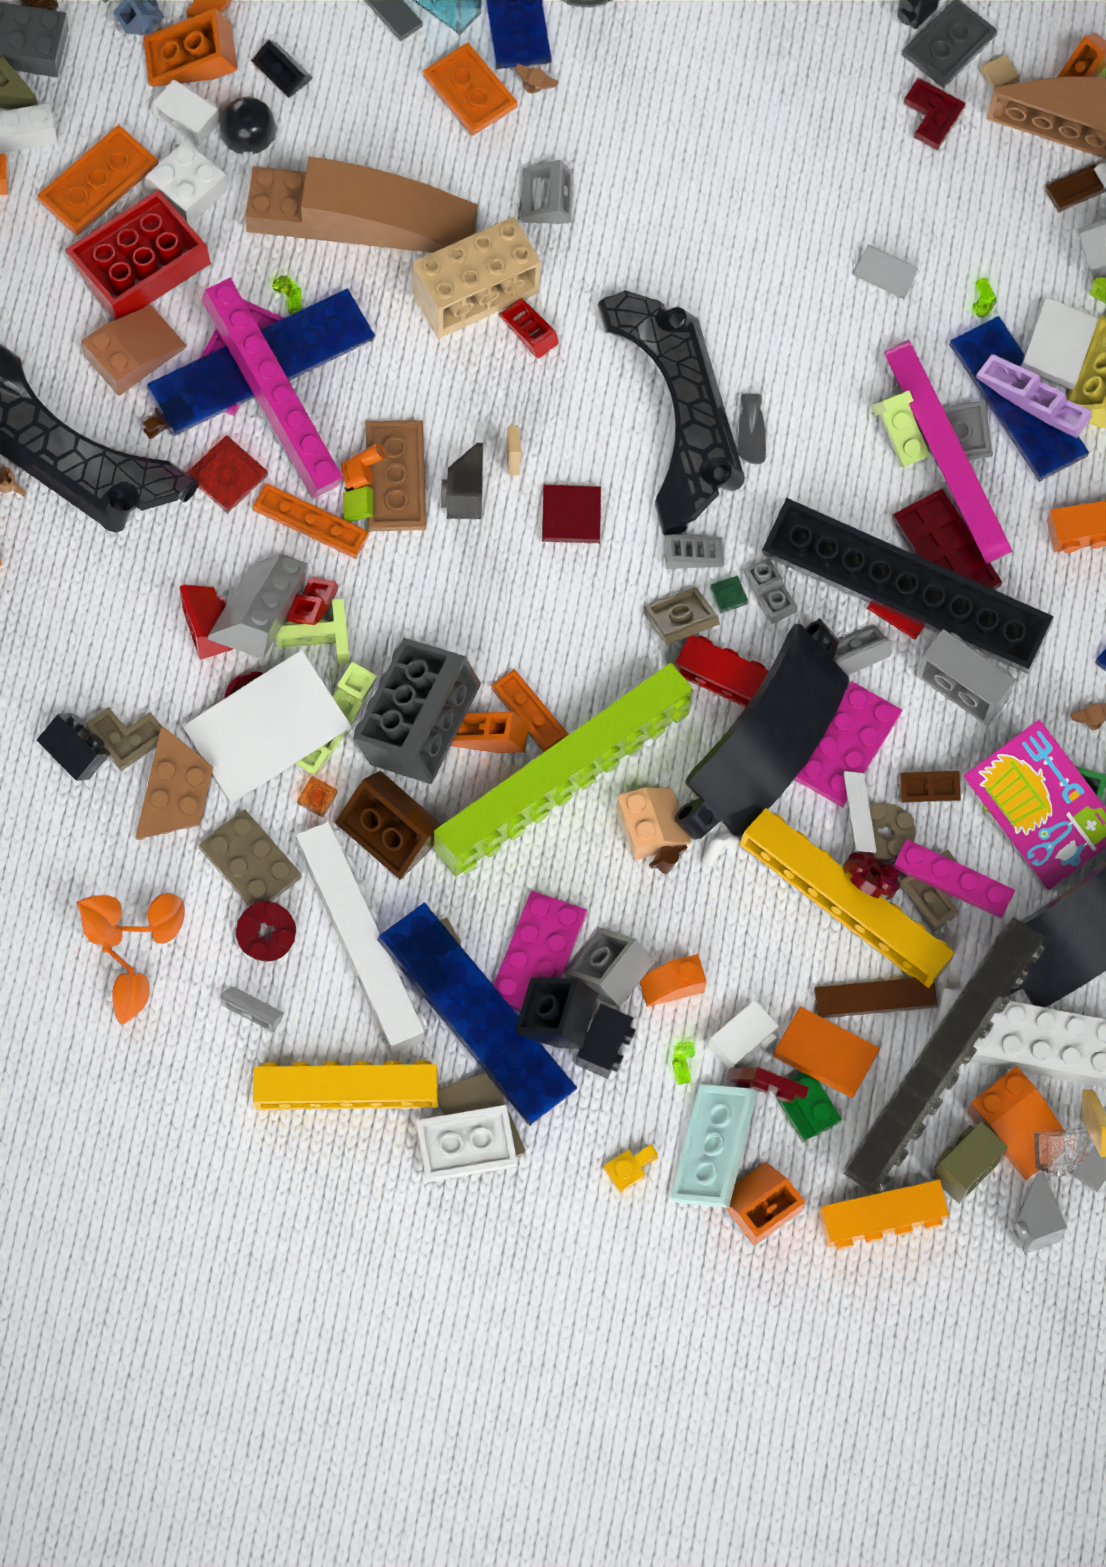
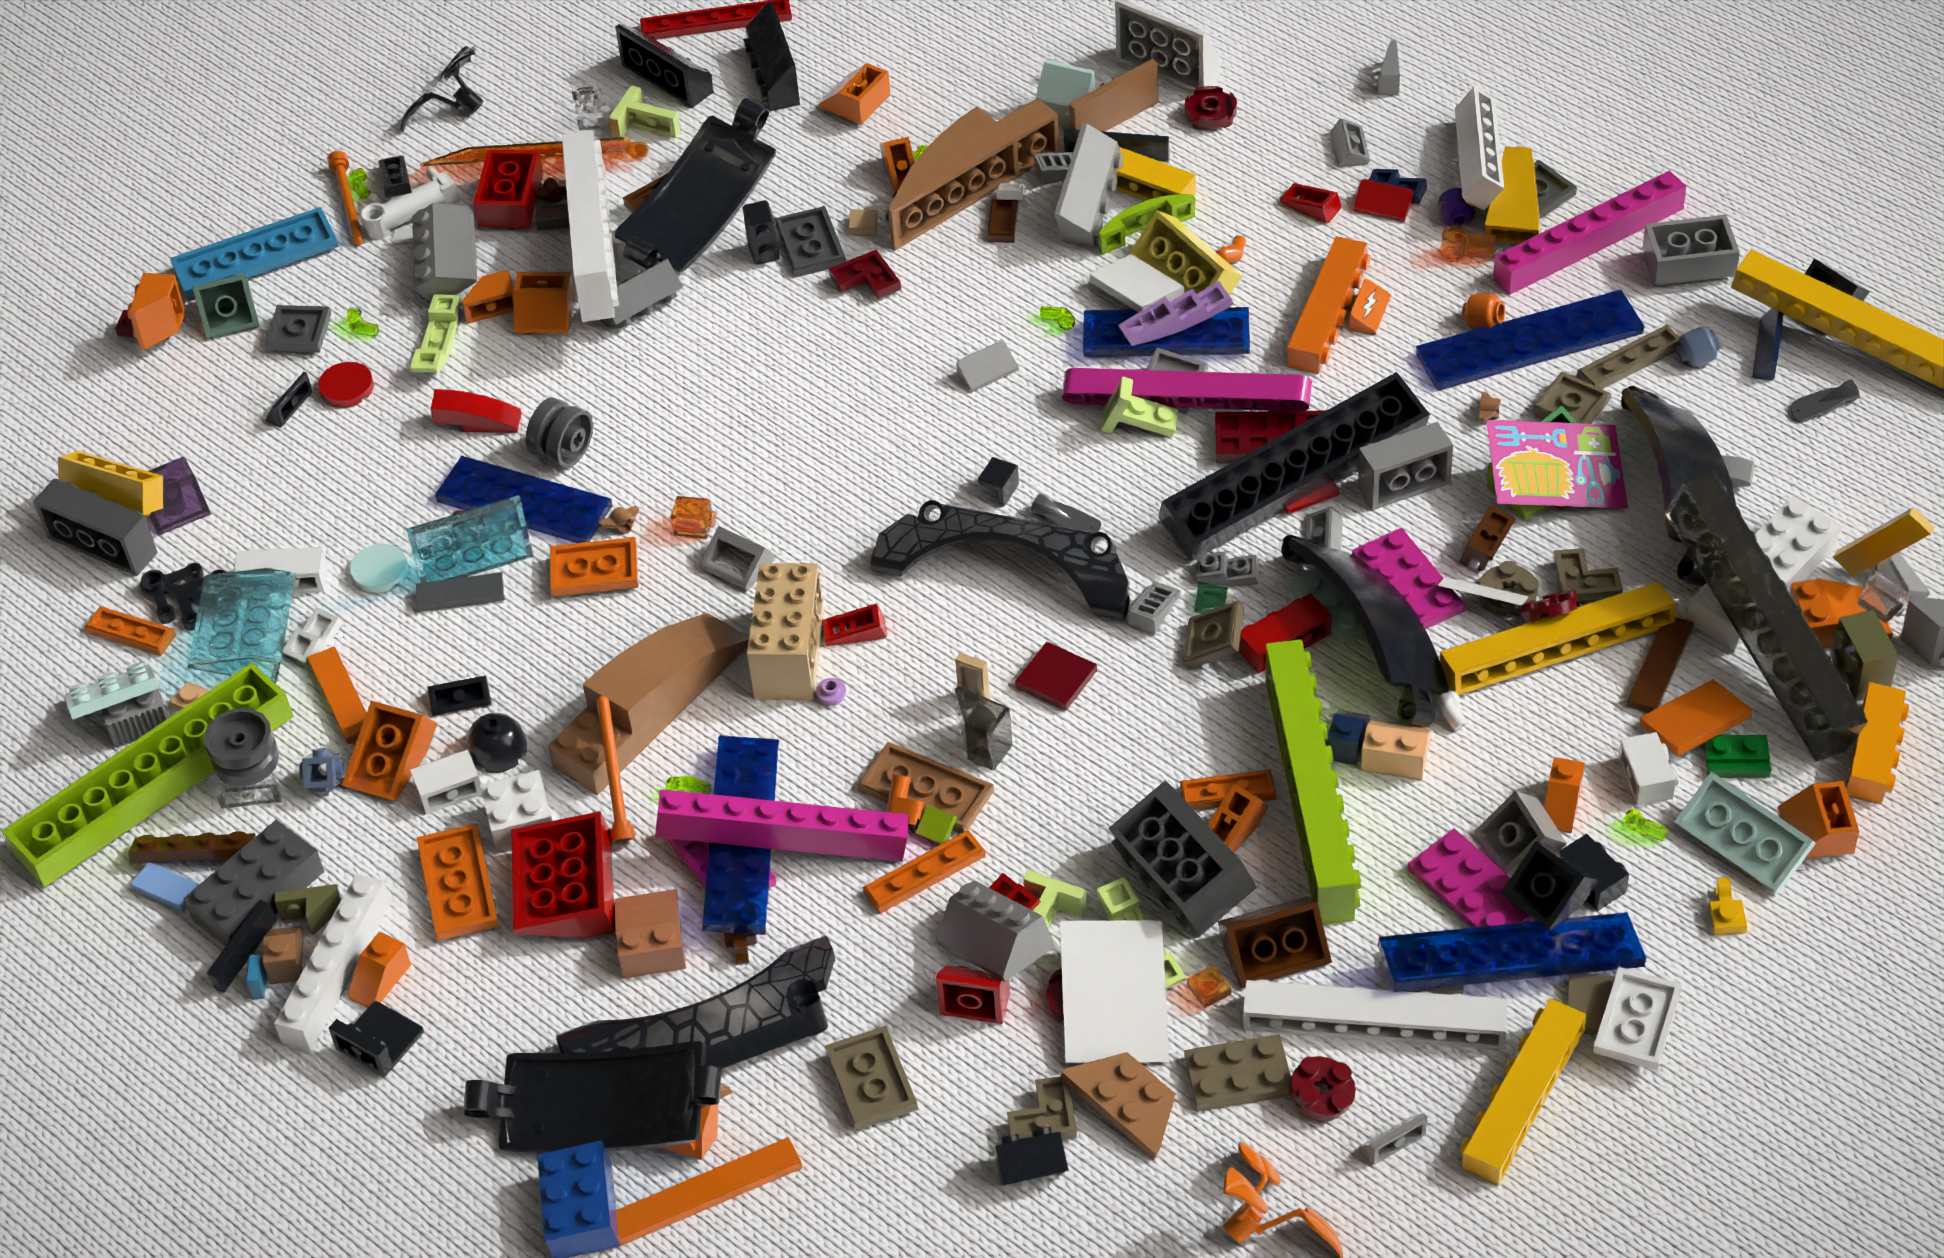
camera: 50 degrees left, 20 degrees down
(88, 589) = (871, 1077): none -> dark tan plate
(215, 270) = (621, 827): none -> orange piece
(227, 474) = (832, 913): clear red tile -> none
(450, 354) = (831, 691): none -> lavender plate
(567, 133) = (692, 517): none -> clear orange brick
(642, 772) = (1347, 735): none -> dark blue slope
(667, 858) = (1438, 750): reddish brown piece -> none
(754, 353) = (1001, 477): none -> black panel
(764, 1080) = (1705, 761): dark red plate -> none
(954, 878) = (1586, 555): dark pink plate -> none

